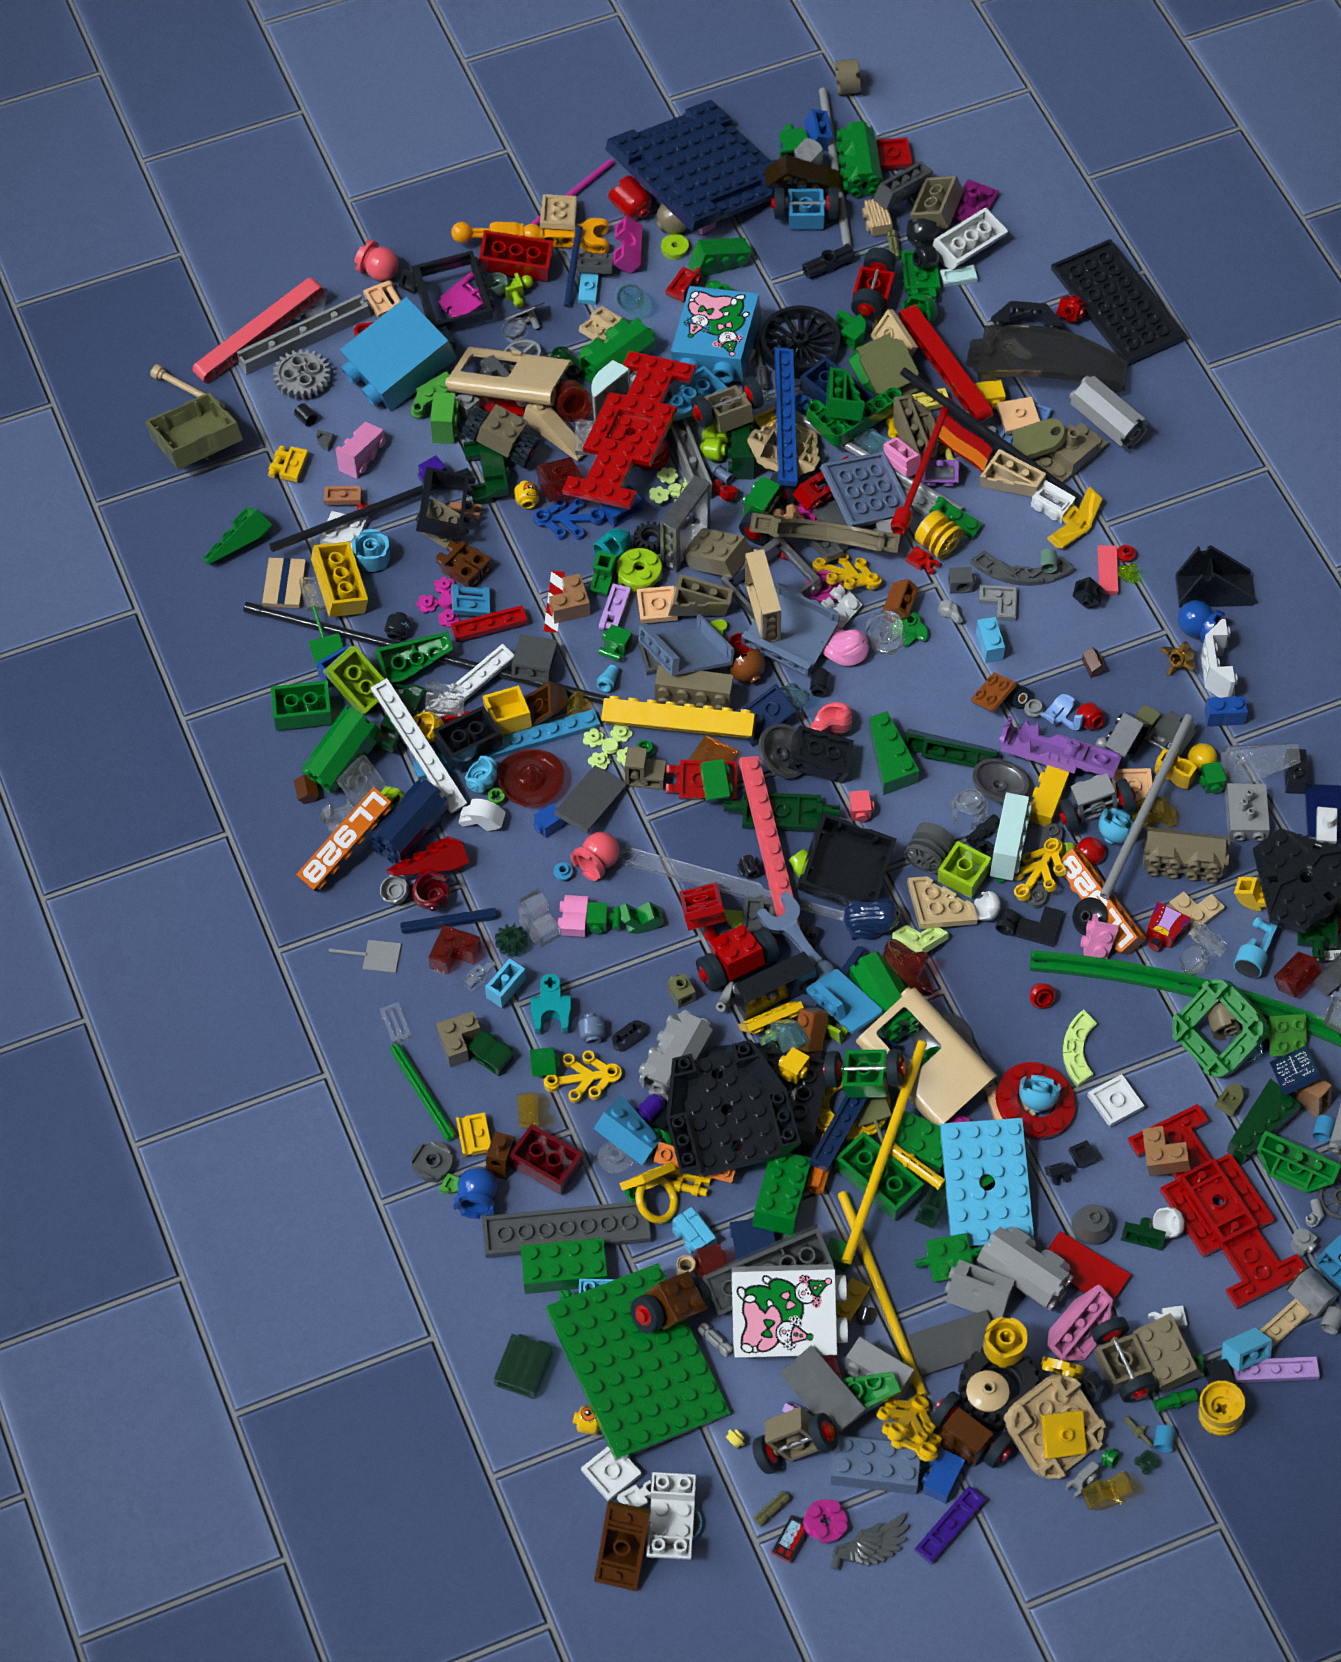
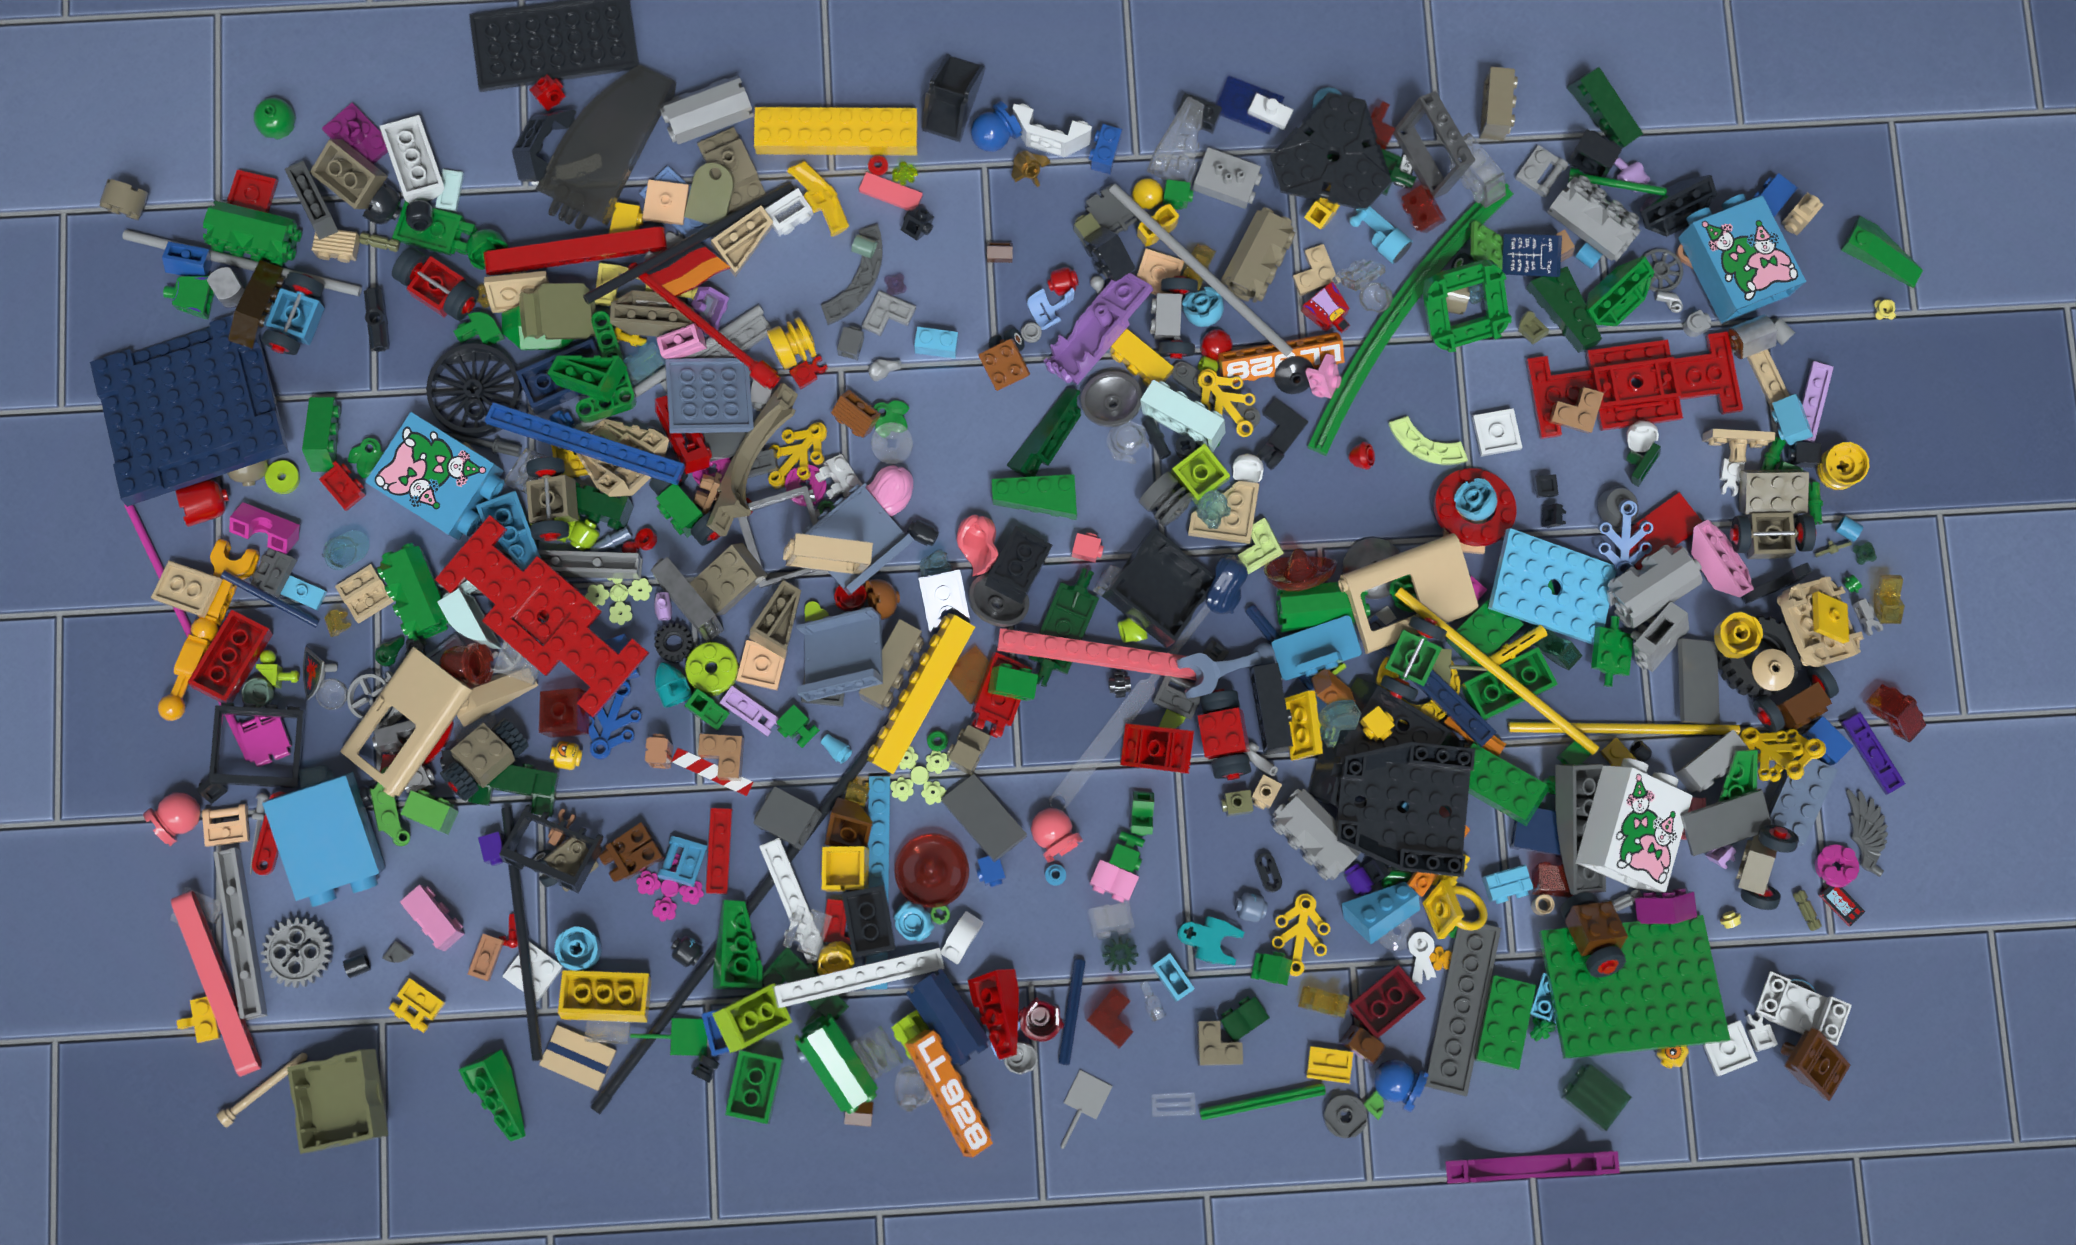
camera: 75 degrees left, 20 degrees up
(225, 331) = (202, 1021): none -> yellow plate
(305, 669) = (702, 1072): none -> black wheel
(441, 1335) = (1532, 1167): none -> magenta slope
(553, 552) = (658, 752): none -> nougat brick
(569, 316) = (335, 624): none -> clear yellow tile
(603, 1198) = (1440, 959): none -> light orange plant
(607, 1179) = (1421, 947): none -> white piece
(700, 1006) = (1265, 792): none -> tan brick
(722, 1369) = (1666, 908): none -> magenta brick
(935, 882) = (1212, 508): none -> clear light blue hair
(961, 147) = (274, 118): none -> green cylinder
(968, 523) = (771, 317): green plate -> none
(998, 1528) = (1898, 710): none -> clear red brick
(1024, 600) = (894, 290): none -> clear purple plate
(1057, 1366) = (1770, 592): yellow plate -> none
(1058, 1234) = (1625, 542): none -> medium blue plant
(1140, 512) = (835, 131): none -> yellow brick
(1202, 1306) = (1738, 441): none -> tan plate
(1205, 1349) = (1772, 457): none -> green pin

